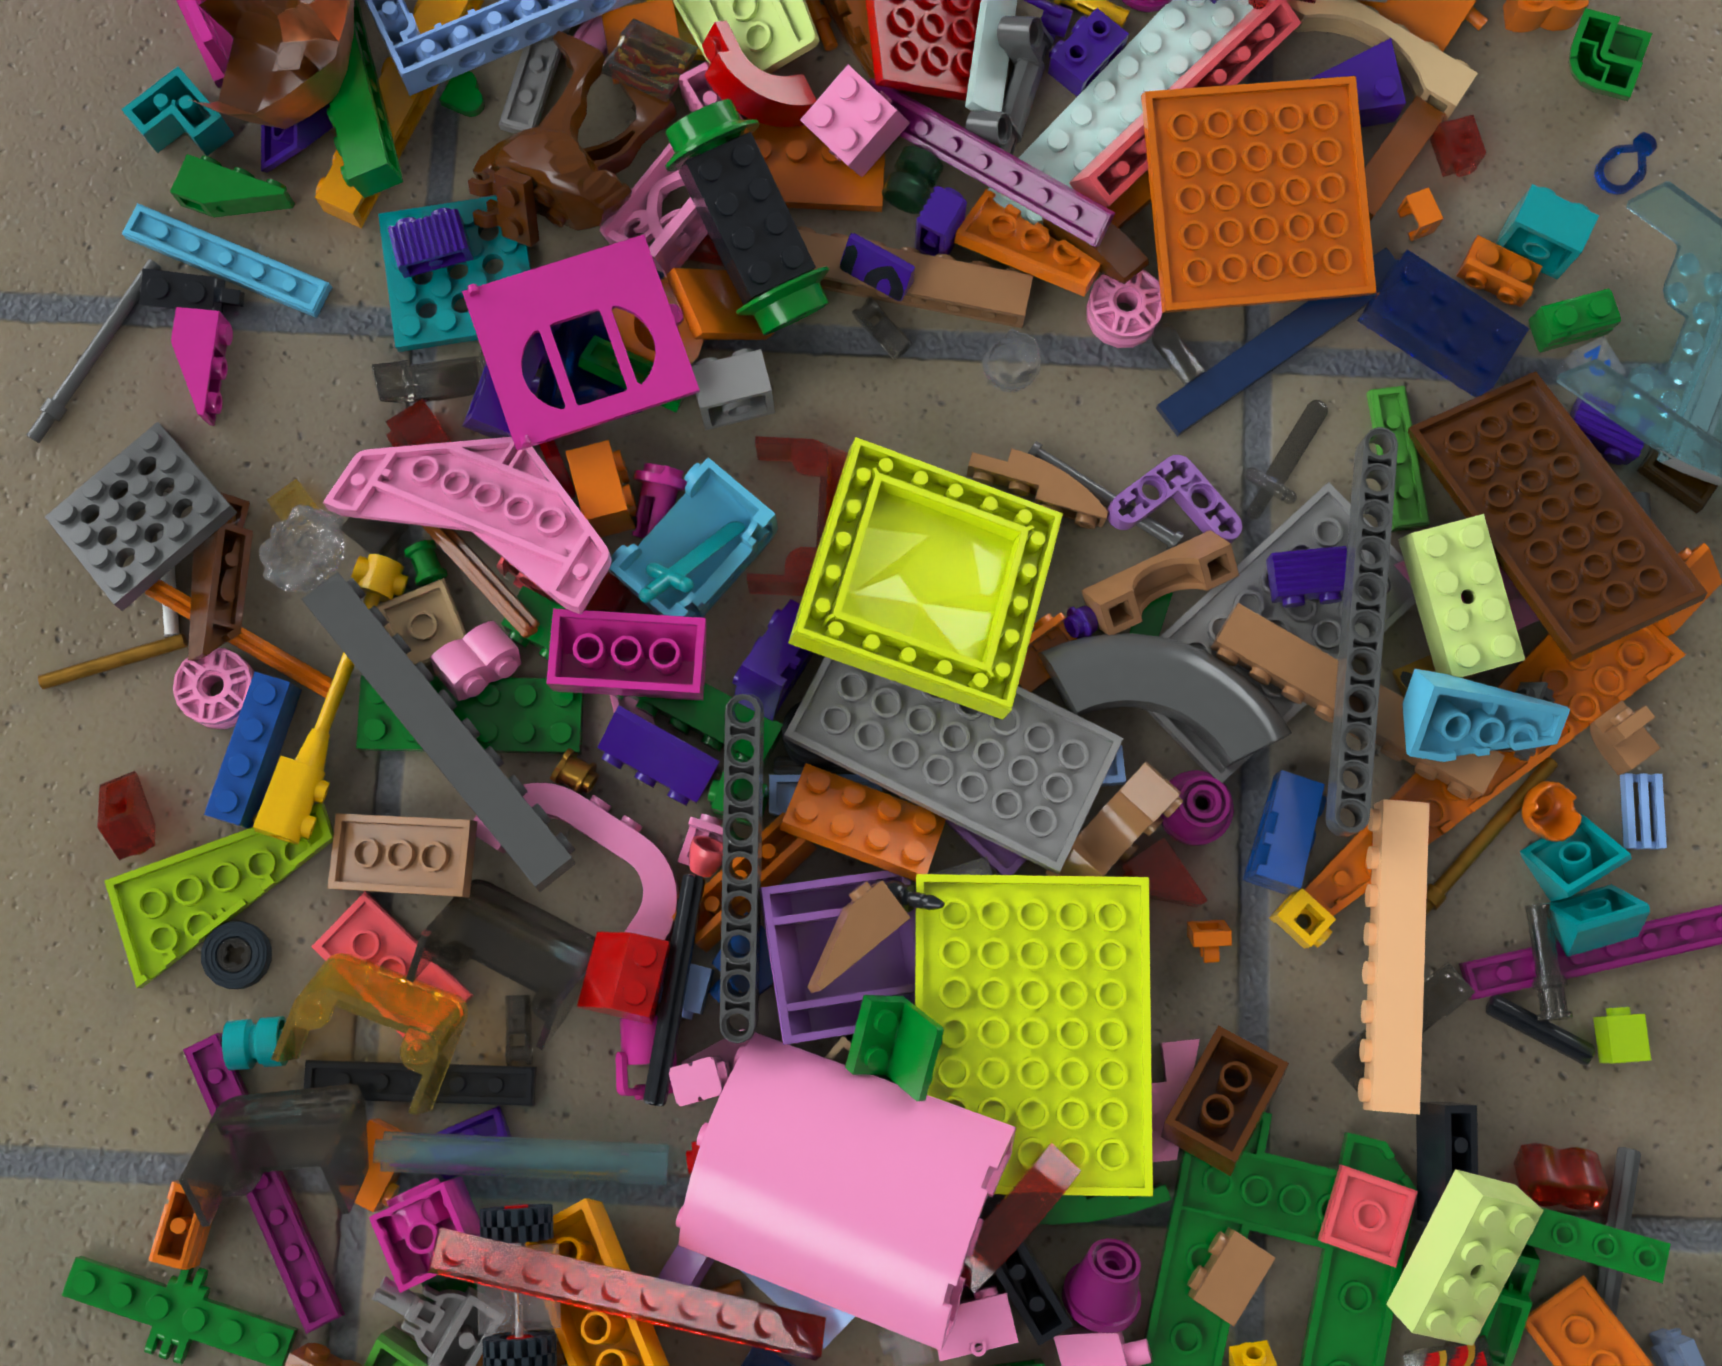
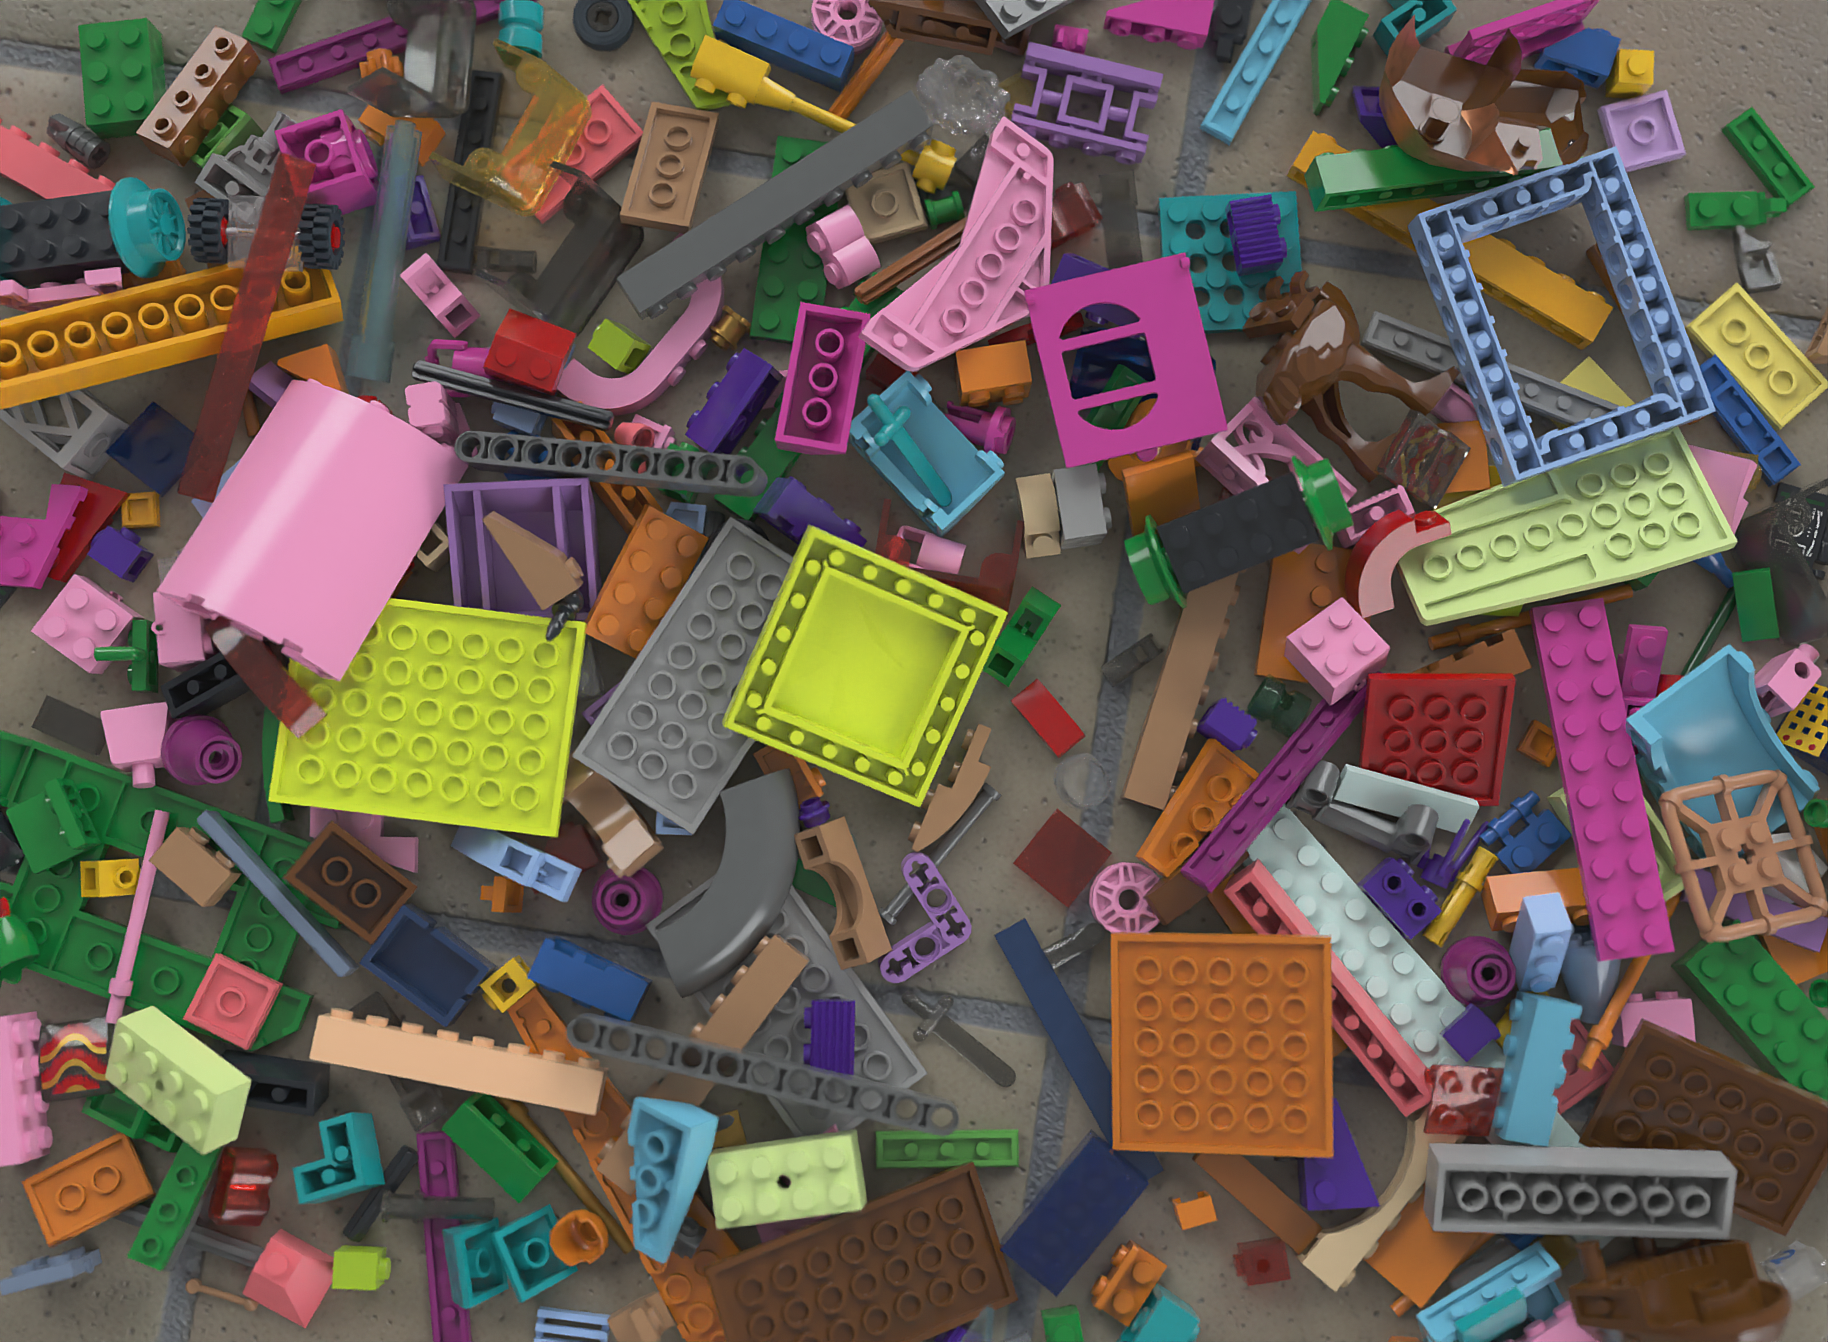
camera: 95 degrees right, 5 degrees up
(235, 456) = (1070, 39): none -> dark pink tile
(271, 422) = (1091, 77): none -> medium lavender fence
(311, 1196) = (381, 58): none -> orange gear
(463, 95) = (1410, 282): green tile -> none
(566, 1092) = (440, 295): none -> bright pink brick
(605, 888) = (618, 346): none -> lime brick
(658, 1224) = (317, 364): none -> orange slope
(734, 430) = (1040, 515): none -> tan brick
(795, 529) = (936, 552): none -> bright pink piece
(847, 421) = (1020, 636): none -> green brick
(877, 267) = (1183, 656): dark purple slope -> none
(896, 1042) = (437, 584): green bracket -> none
(951, 403) = (1048, 718): none -> red slope
(1090, 376) = (1062, 858): none -> clear red tile
(1176, 920) = (517, 860): none -> light blue slope
(1246, 1180) = (277, 893): none -> sand blue tile
(1298, 1004) = (427, 964): none -> dark blue piece
(1369, 1342) = (121, 984): none -> bright pink bar
(1472, 905) = (499, 1145): none -> green brick
(1521, 1062) = (349, 1163): none -> teal brick
(1642, 1113) = (290, 1278): none -> coral slope
(1668, 1219) = (195, 1285): none -> medium nougat hinge

